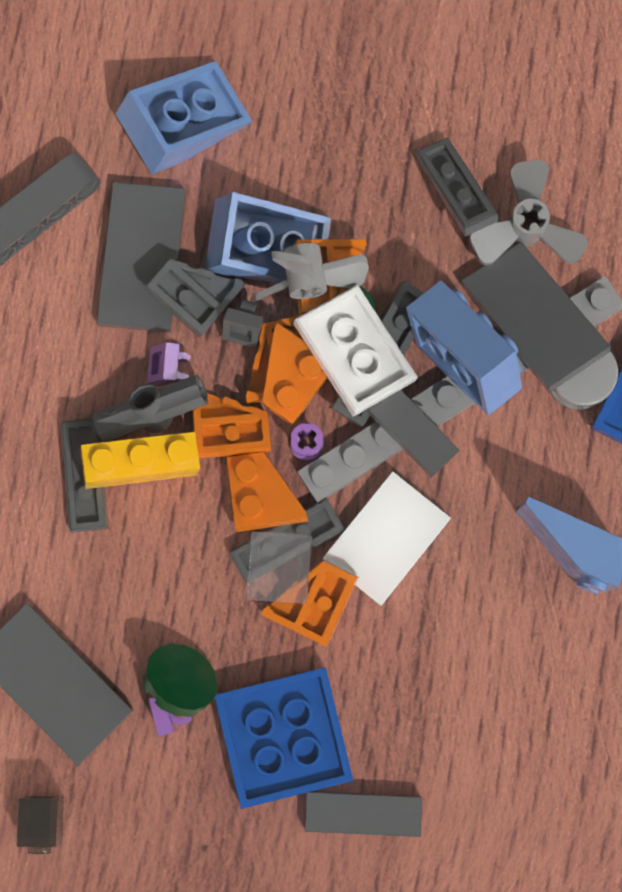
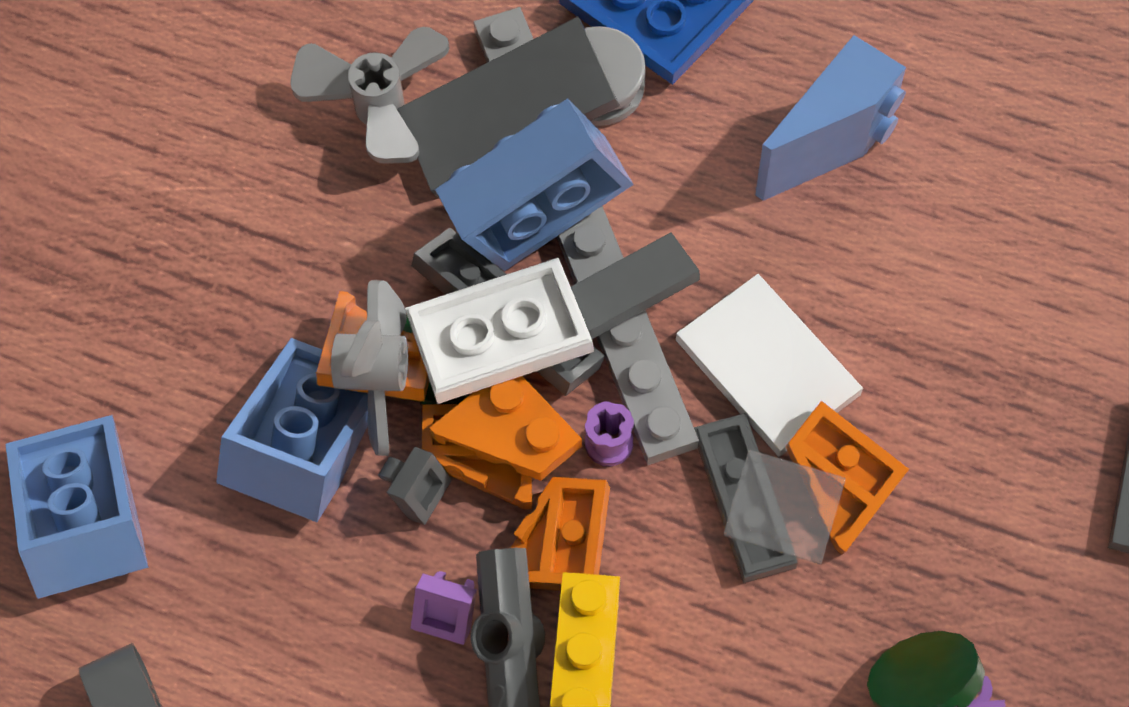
camera: 75 degrees left, 15 degrees down
(140, 239) = (269, 612): dark grey tile -> none
(192, 294) = (350, 543): dark grey wing -> none
(261, 494) = (669, 513): orange wing -> none
(283, 738) = (1030, 557): blue plate -> none
(456, 187) = (299, 163): dark grey tile -> none

